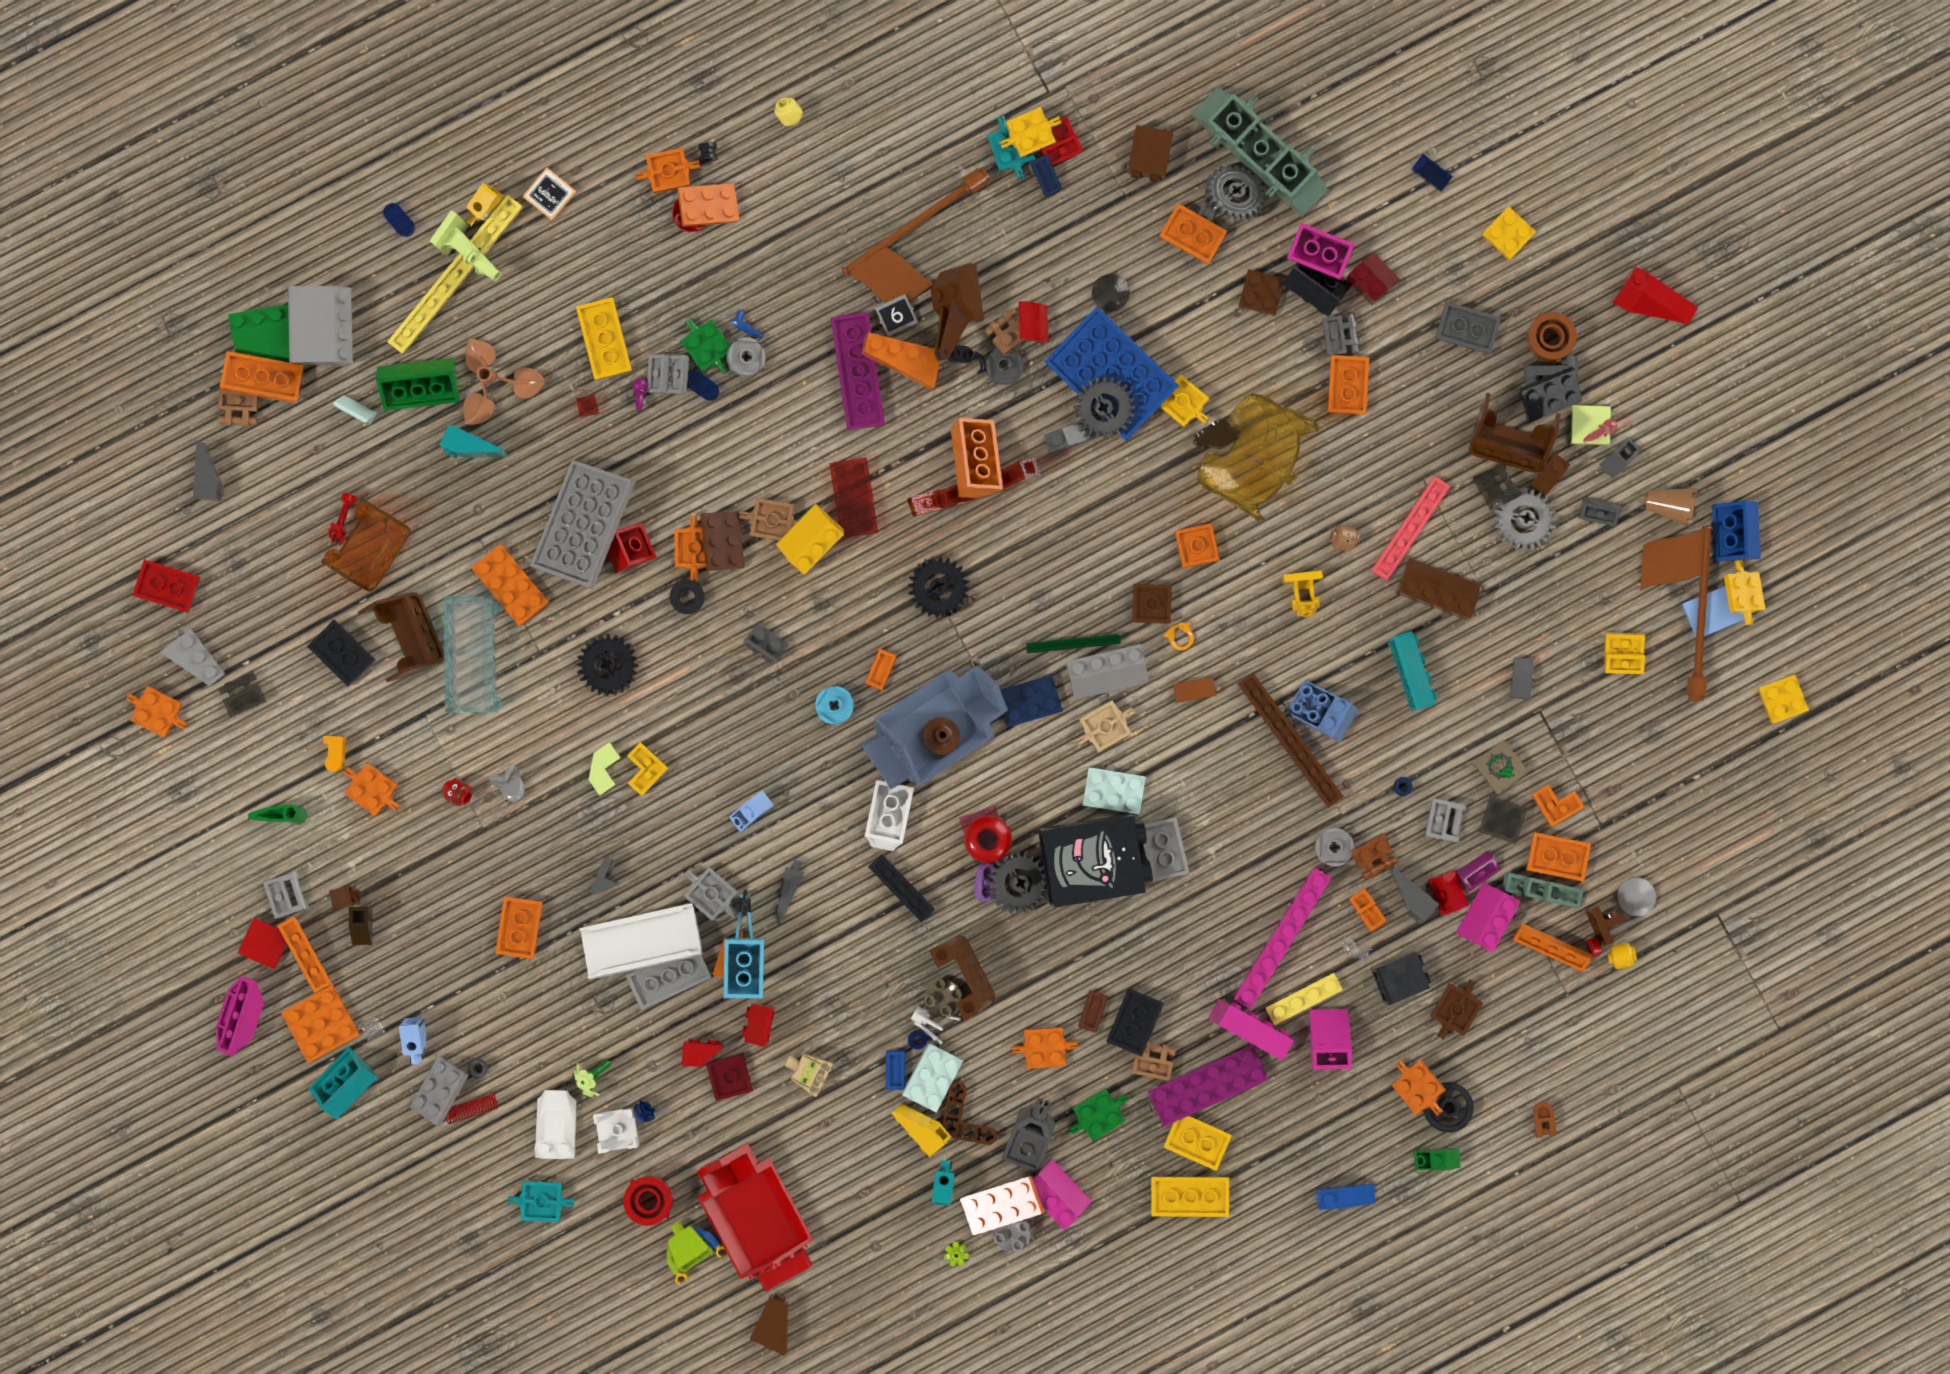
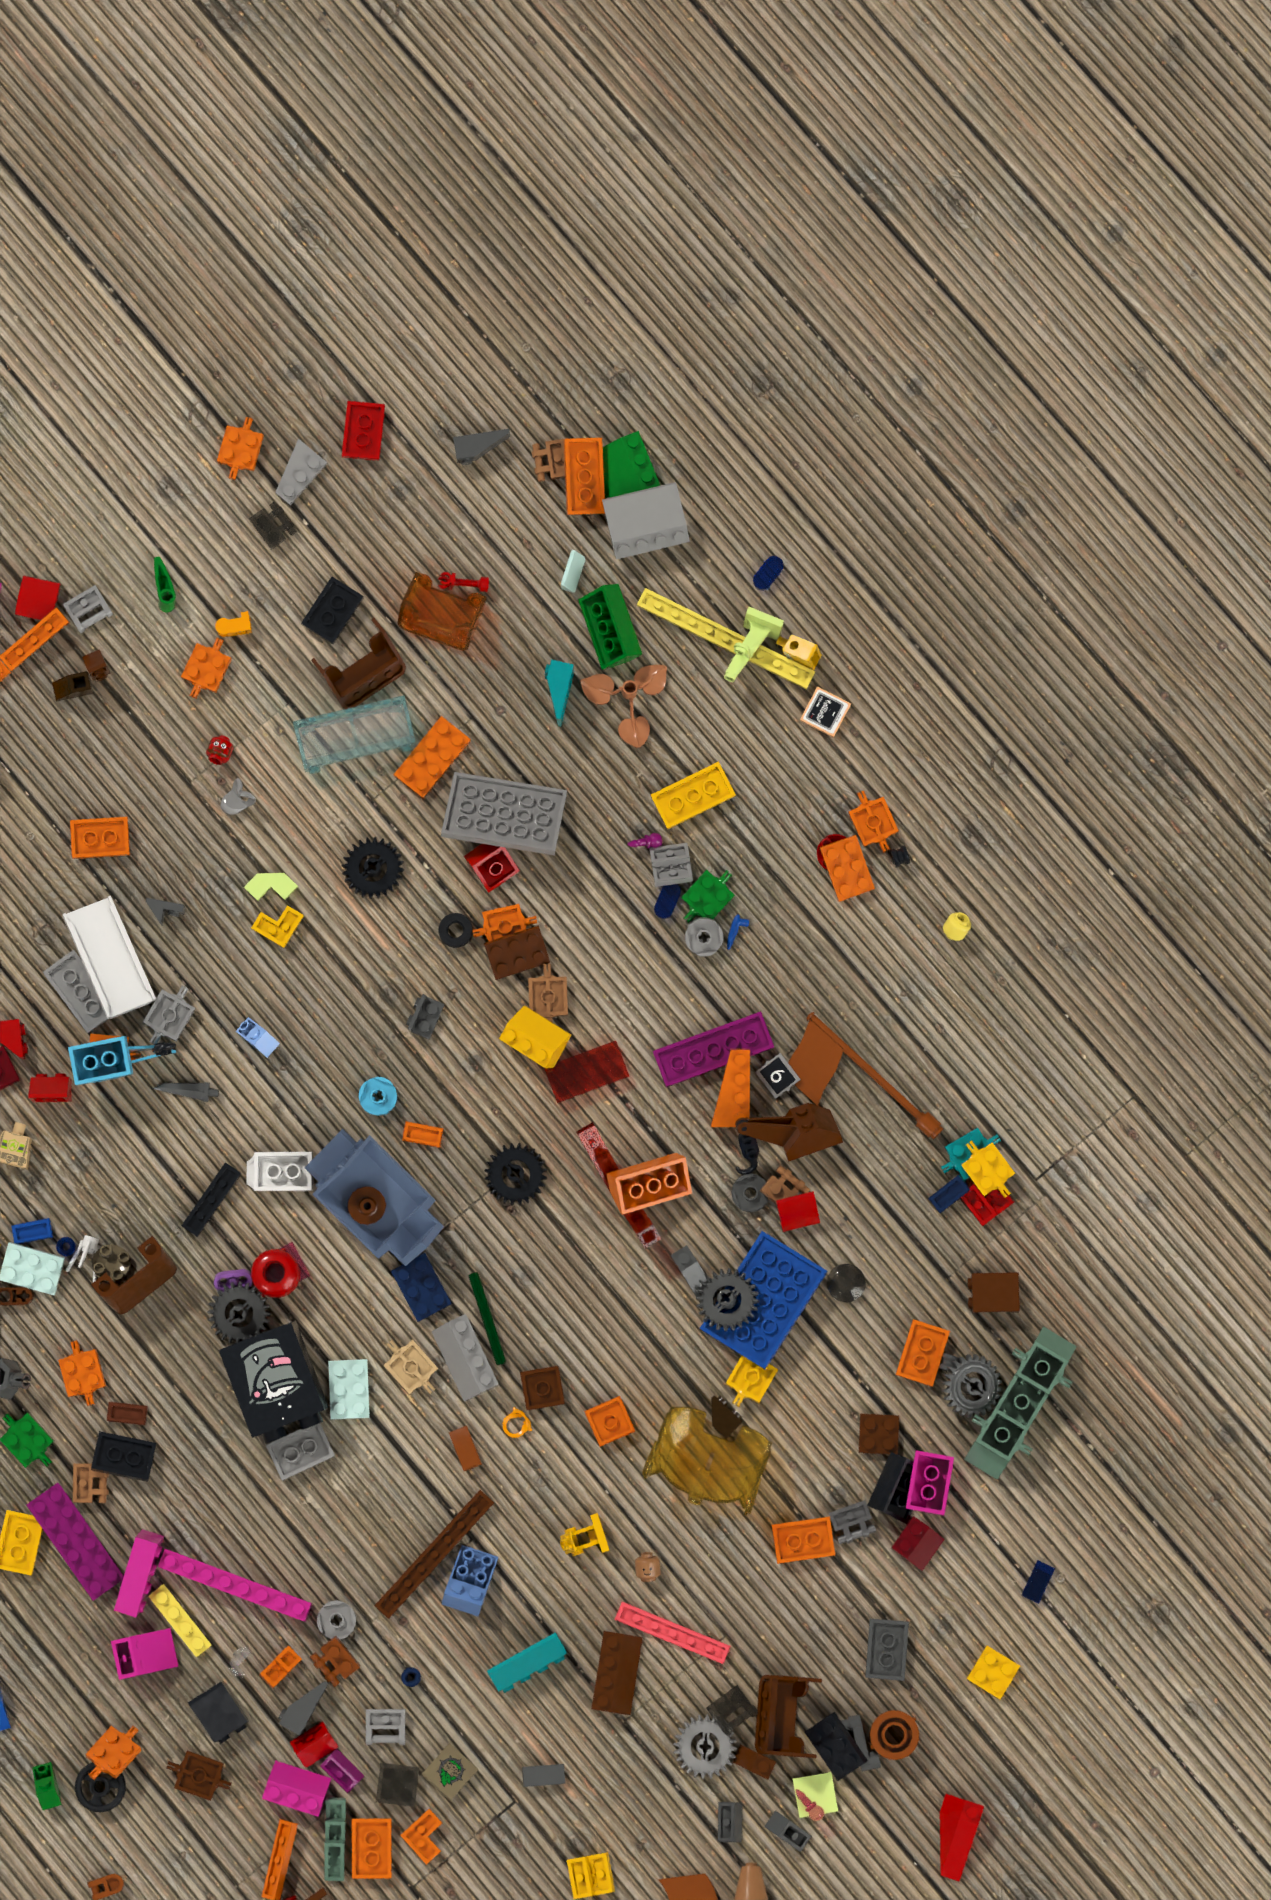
camera: 80 degrees right, 5 degrees down
(587, 406) = (623, 794): clear red plate -> none

